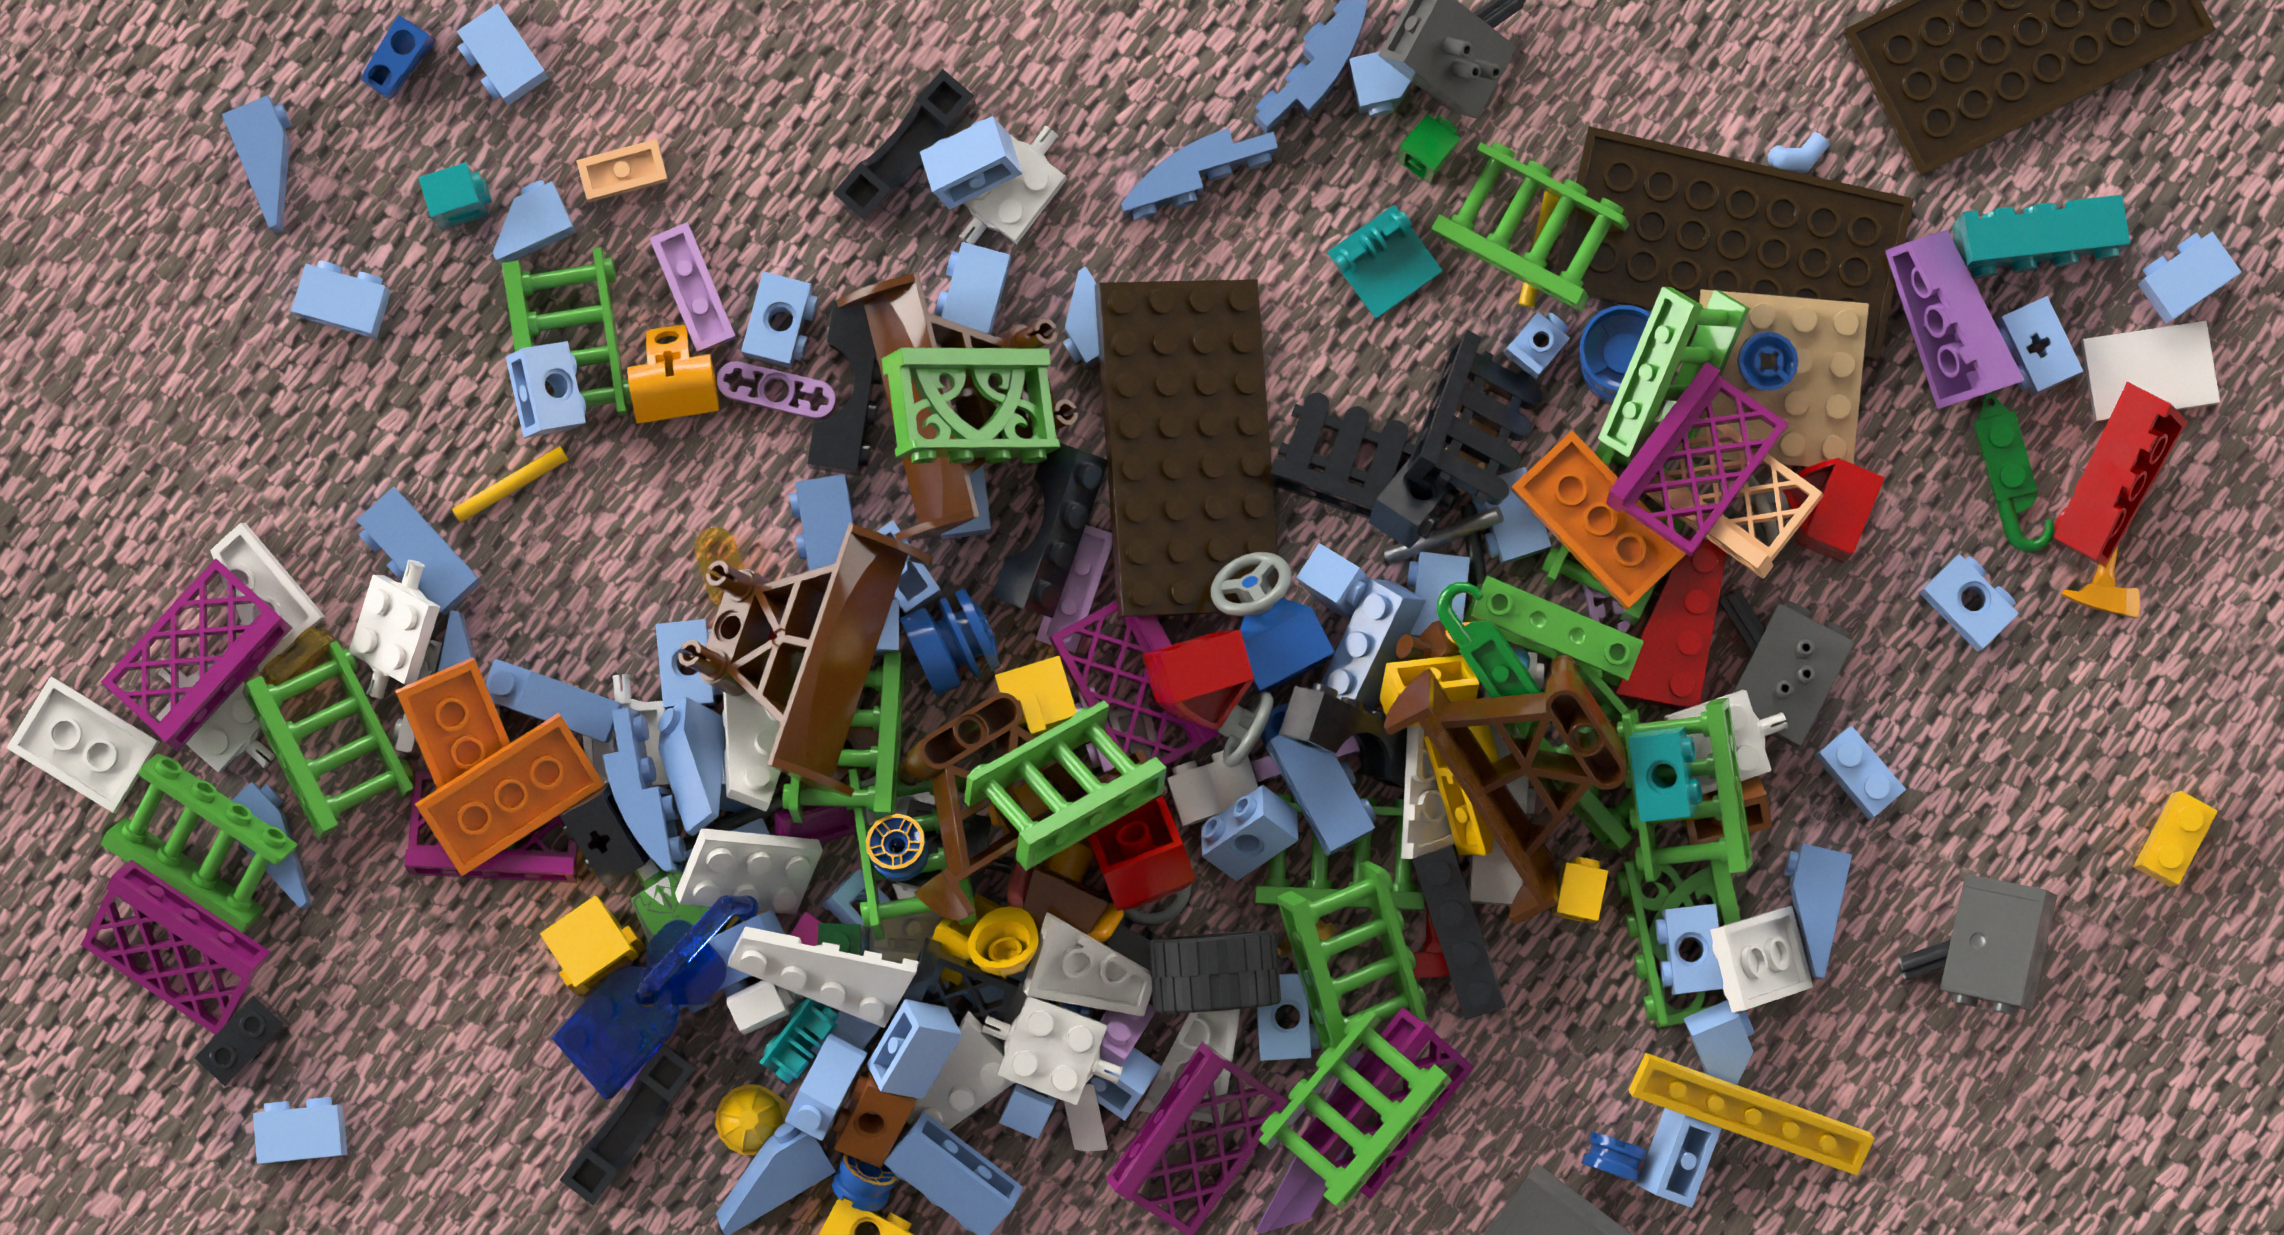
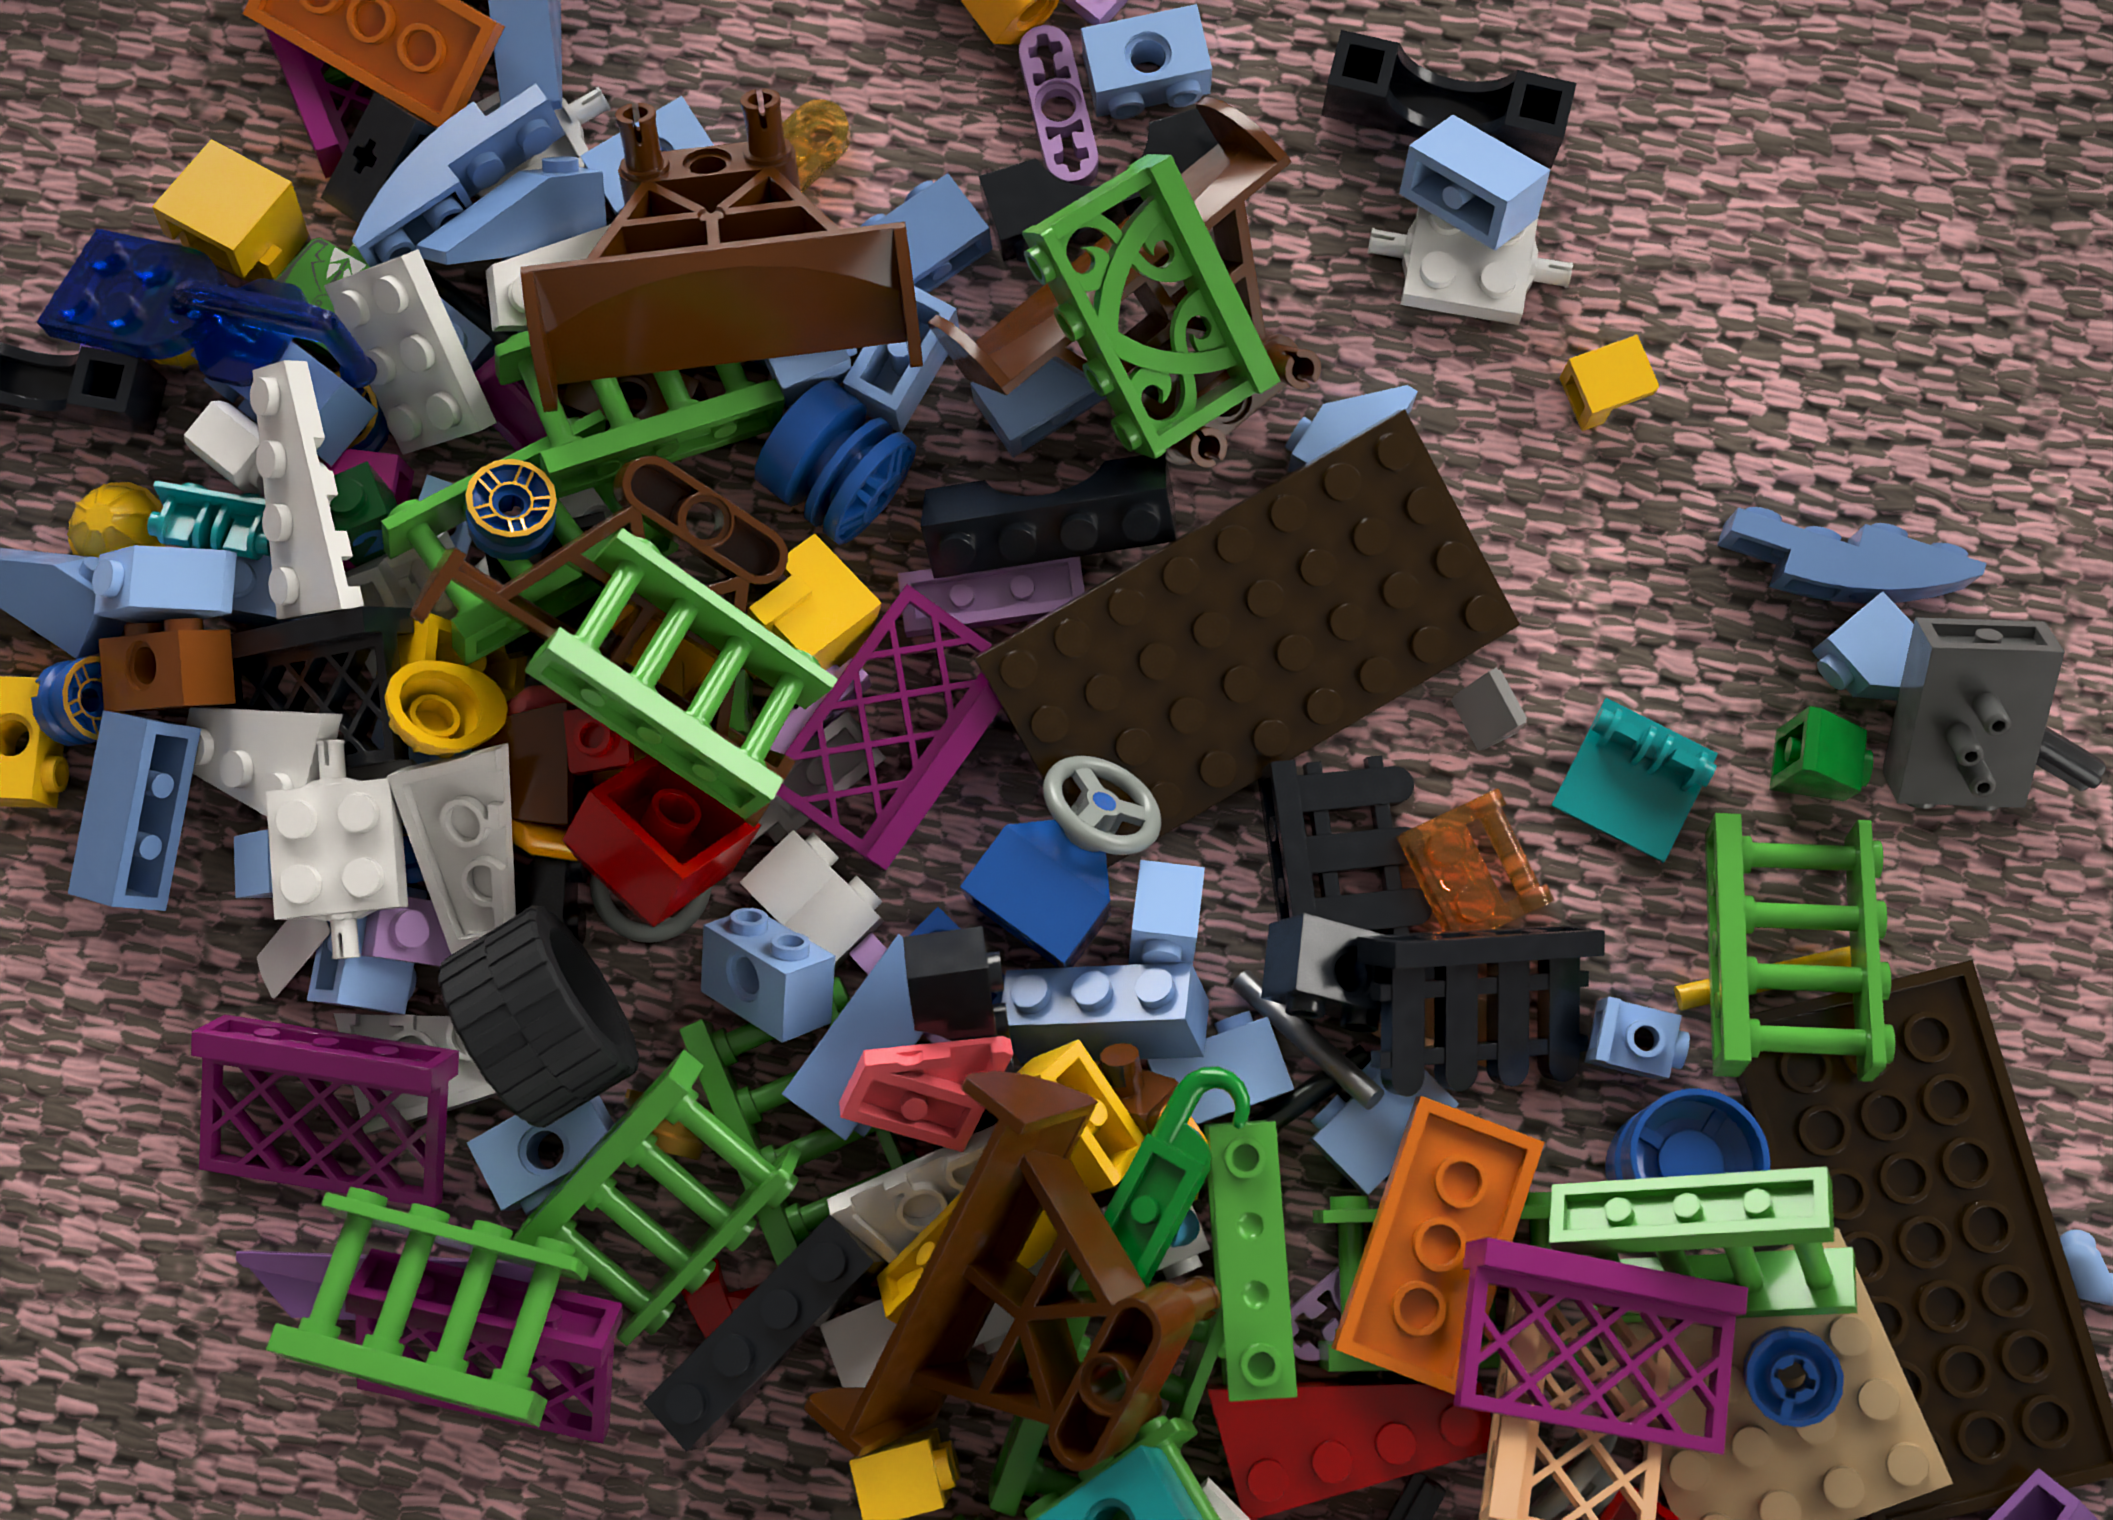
camera: 70 degrees right, 5 degrees down
(914, 1049) = (254, 667): light blue brick -> none
(974, 287) = (1316, 275): light blue brick -> none
(1070, 863) = (593, 745): none -> red bracket
(1135, 145) = (1607, 380): none -> yellow panel
(1179, 175) = (1603, 455): medium blue slope -> none
(1204, 683) = (930, 806): red piece -> none
(1300, 325) = (1489, 710): none -> light grey slope
(1370, 765) = (920, 1091): none -> coral wing
(1390, 397) = (1456, 874): none -> clear orange plate

